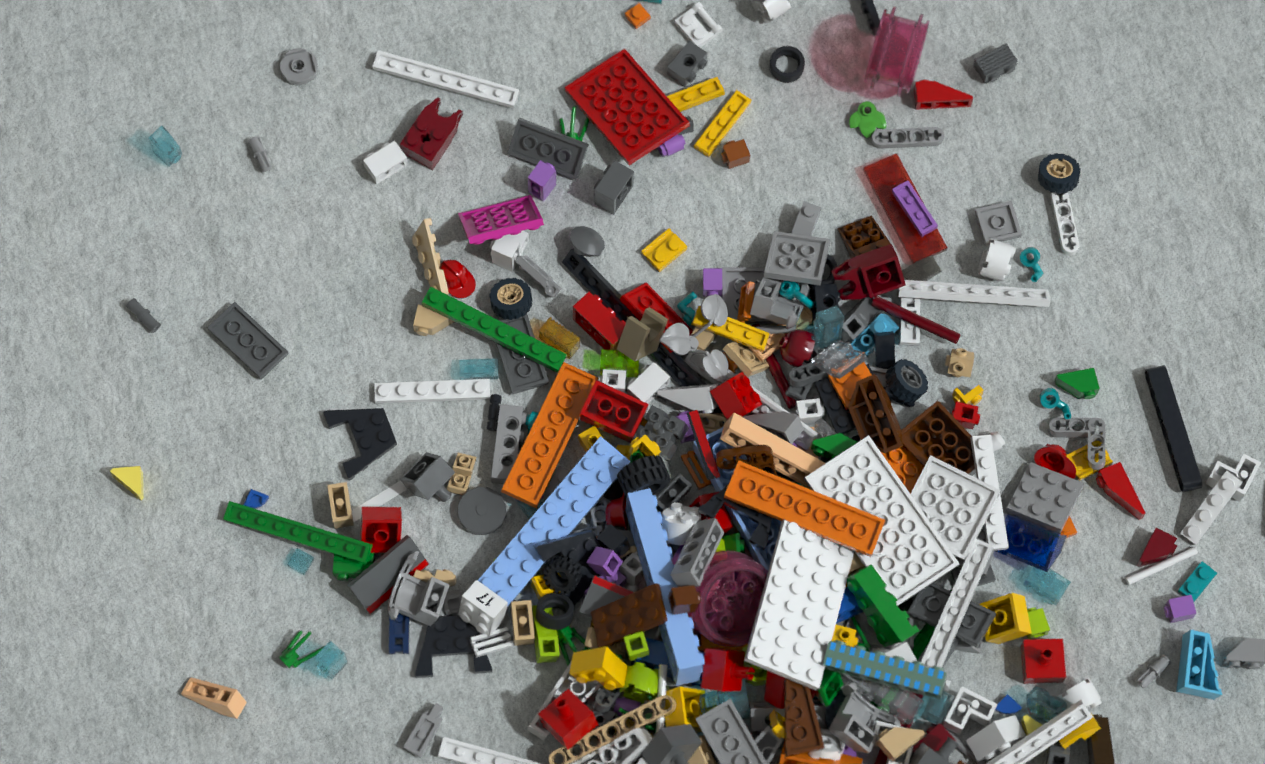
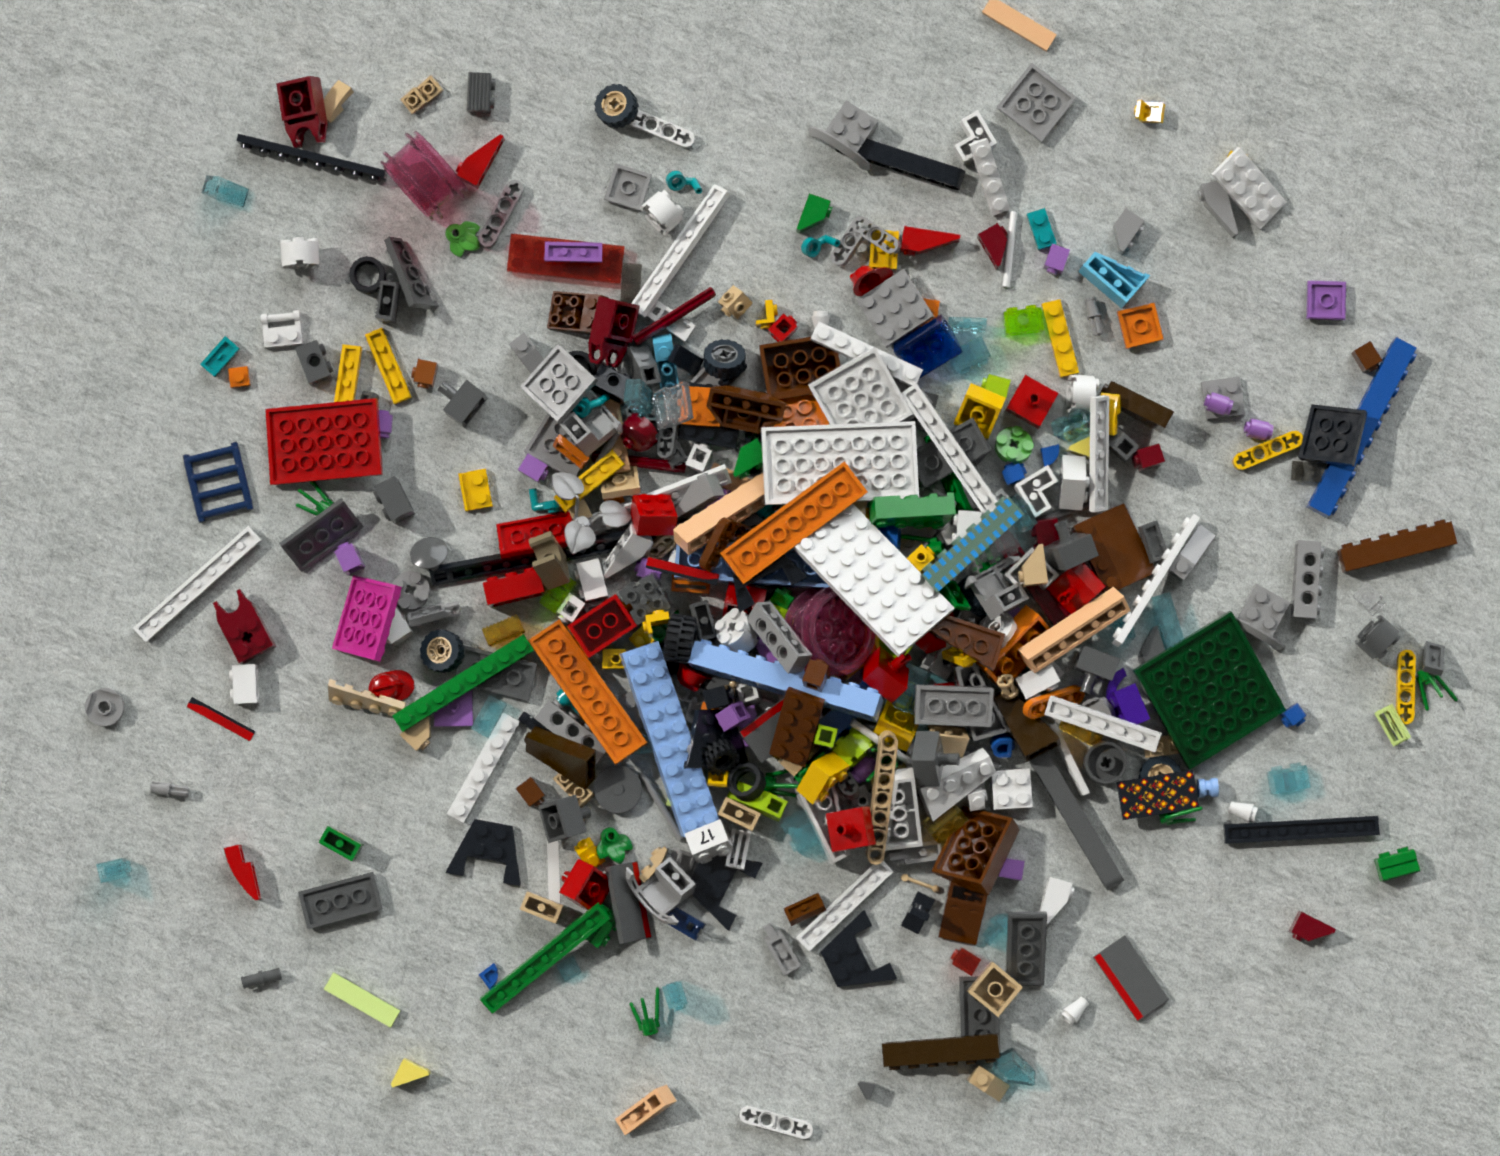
camera: 55 degrees left, 15 degrees up
(172, 407) = (362, 999): none -> yellowish green tile
(226, 249) = (243, 871): none -> red slope
(296, 311) = (340, 843): none -> green brick
(344, 162) = (220, 719): none -> red sticker
(411, 519) = (587, 852): none -> yellow bracket
(428, 536) = (613, 848): none -> green plate
(435, 440) = (531, 792): none -> reddish brown brick
(466, 341) = (456, 713): none -> medium lavender plate
(473, 730) = (804, 909): none -> reddish brown plate
(483, 446) = (562, 755): none -> dark brown slope
(492, 552) = (661, 805): none -> light grey bar
(531, 28) = (237, 467): none -> dark blue bar
(539, 685) = (800, 831): none -> clear light blue brick
(542, 237) = (421, 593): none -> light grey plate
(731, 195) = (462, 403): none -> dark grey brick
(775, 90) = (388, 301): none -> dark grey brick
(807, 95) = (409, 276): none -> dark grey wing
(963, 23) = (422, 95): none -> tan slope
(971, 681) = (1014, 473): none -> blue plate
(1002, 661) = (1020, 437): none -> bright green plate
(1073, 566) = (975, 325): none -> clear light blue plate
(1108, 623) = (1014, 328): none -> clear neon green brick
(1115, 653) = (1060, 338): none -> yellow plate
(1167, 369) = (848, 132): none -> light grey piece
(1172, 716) = (1140, 325): none -> orange plate

